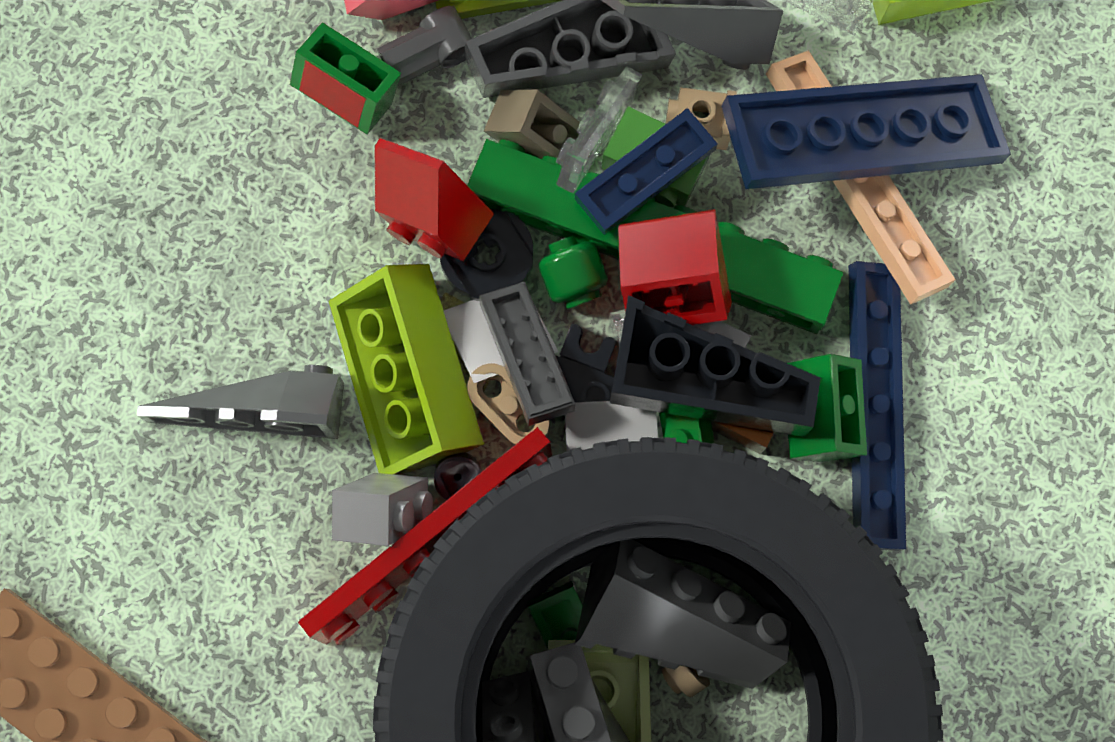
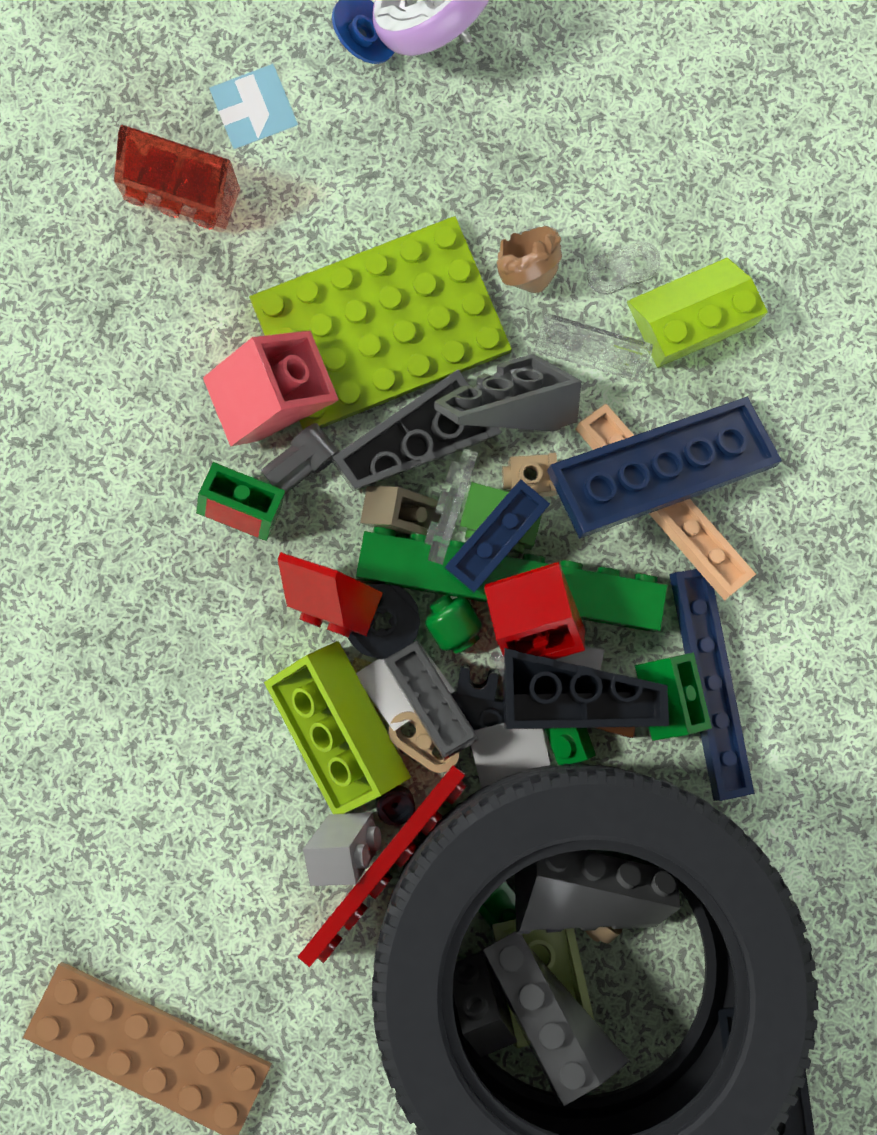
camera: 15 degrees left, 5 degrees up
(274, 404) = (246, 777): dark grey wedge -> none

